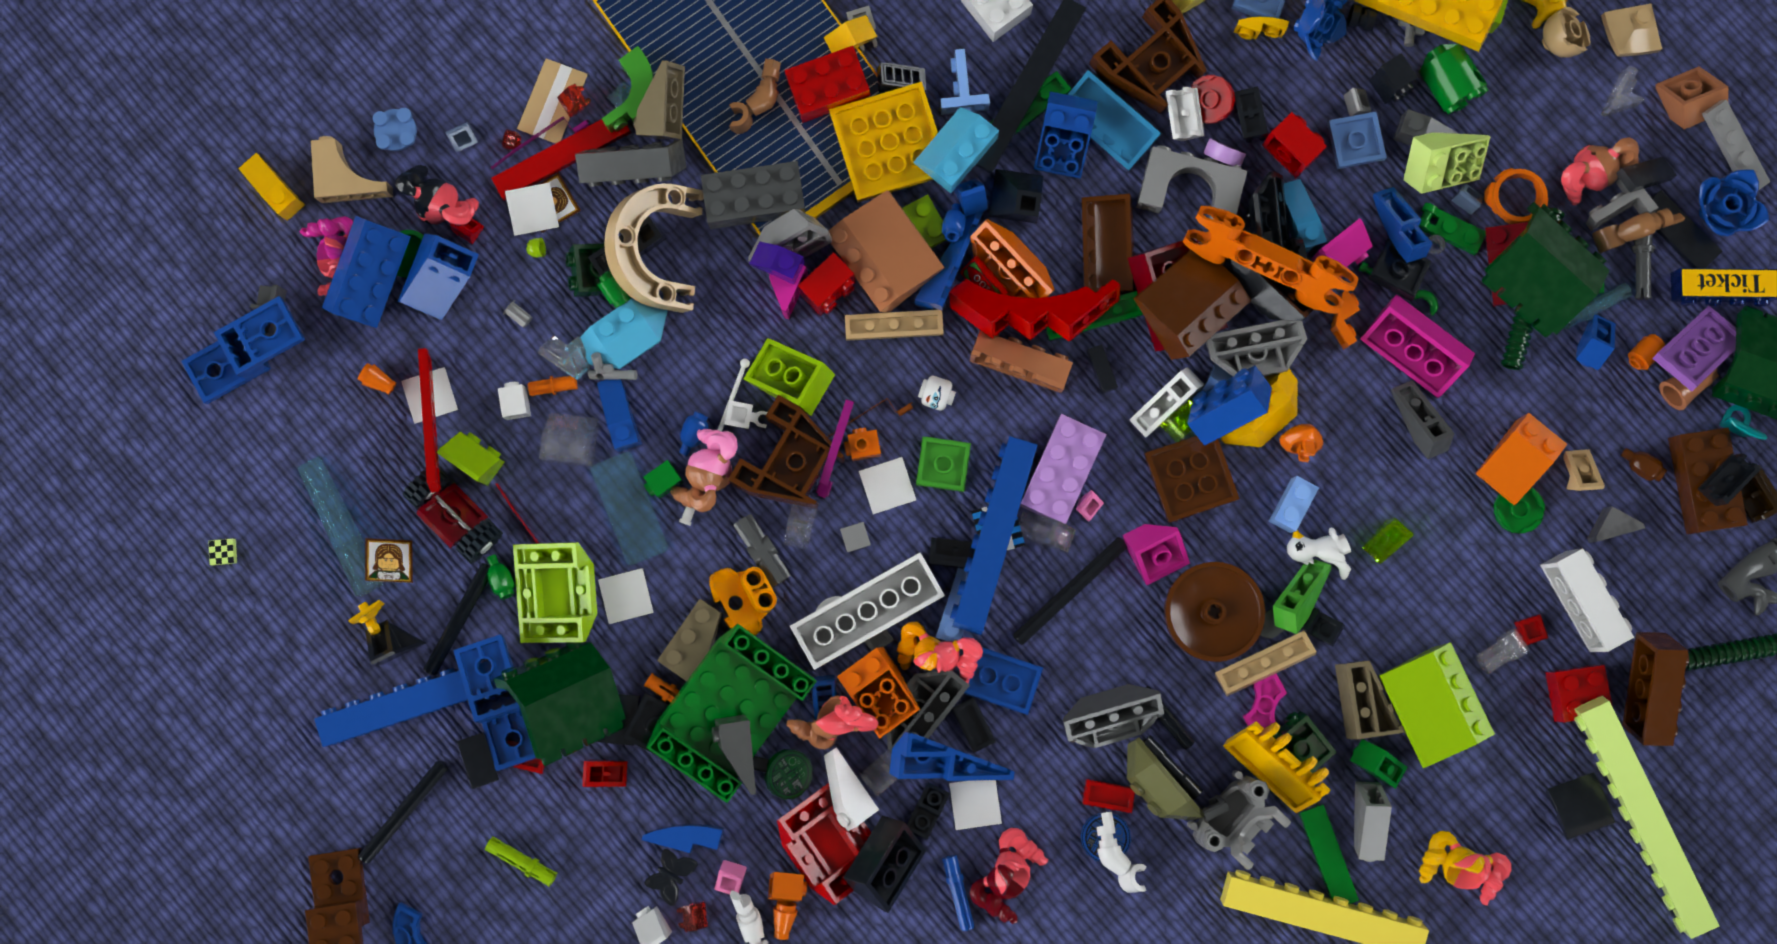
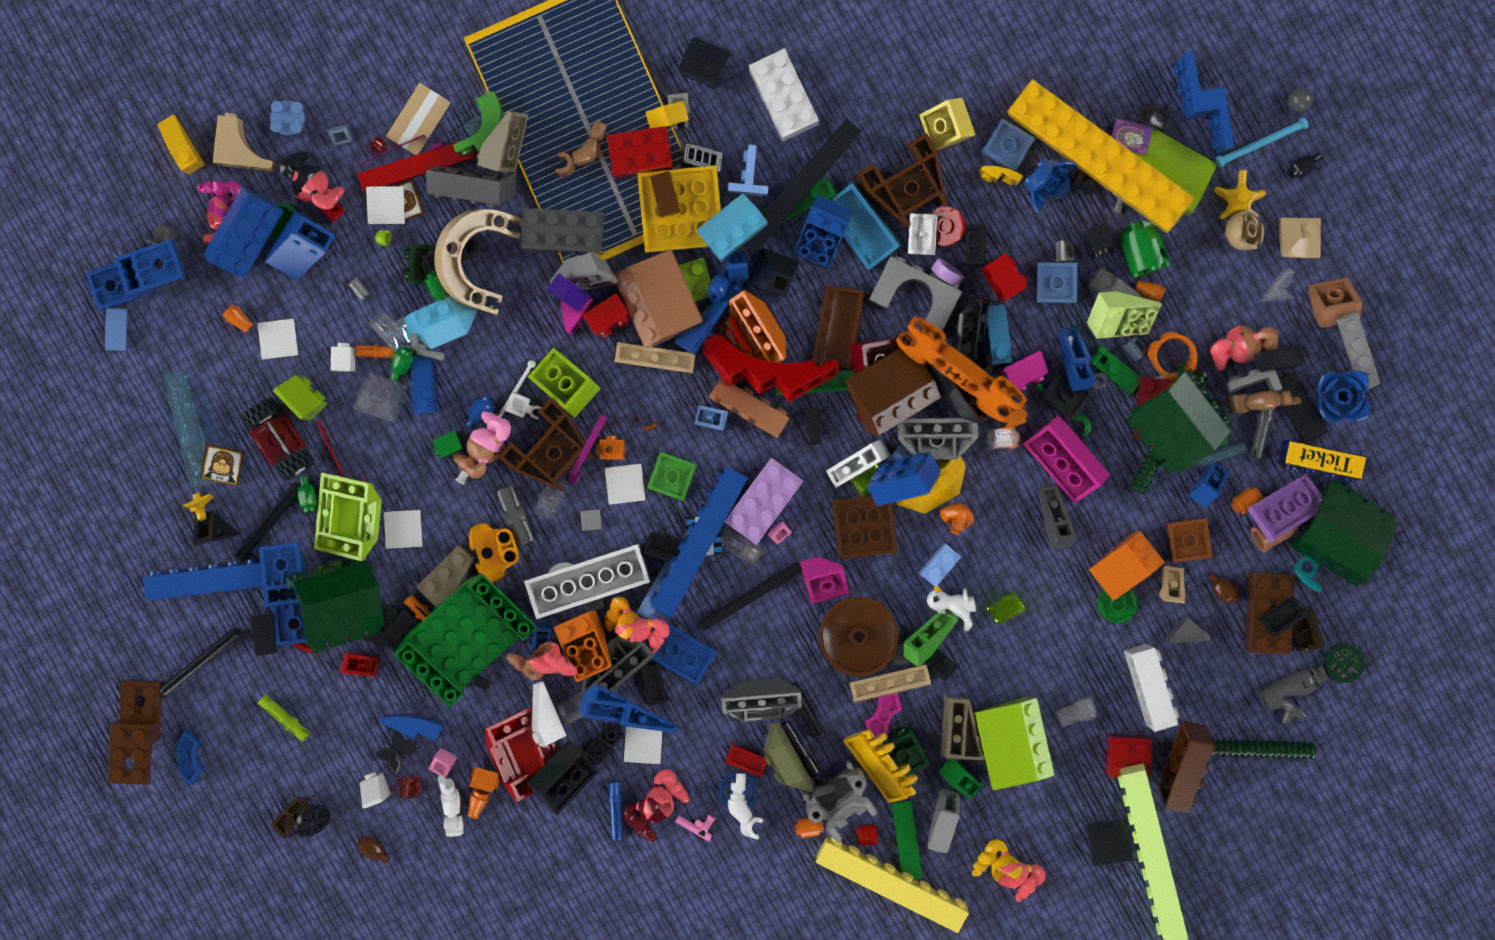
camera: 10 degrees right, 5 degrees up
(222, 552) = (94, 431): tile -> none
(229, 421) = (116, 329): none -> medium blue slope
(429, 420) = (272, 362): red tile -> none
(572, 100) = (434, 123): clear red tile -> none
(586, 392) = (401, 362): none -> green plant
(629, 508) = (418, 461): clear light blue piece -> none
(734, 740) = (464, 661): dark grey slope -> none
(788, 774) = (502, 693): dark green tile -> none
(868, 125) = (665, 194): none -> reddish brown slope
(936, 393) = (677, 419): white head -> none
(977, 383) = (711, 417): none -> medium blue slope
(1065, 892) = (697, 826): none -> bright pink hose
(1204, 864) = (807, 828): none -> orange brick
(1277, 860) = (867, 835): none -> red slope
(1334, 335) = (1002, 438): none -> clear slope
(1470, 125) = (1150, 290): none -> orange cone
(1532, 629) = (1104, 699): red tile -> none
(1588, 413) = (1189, 540): none -> dark orange plate

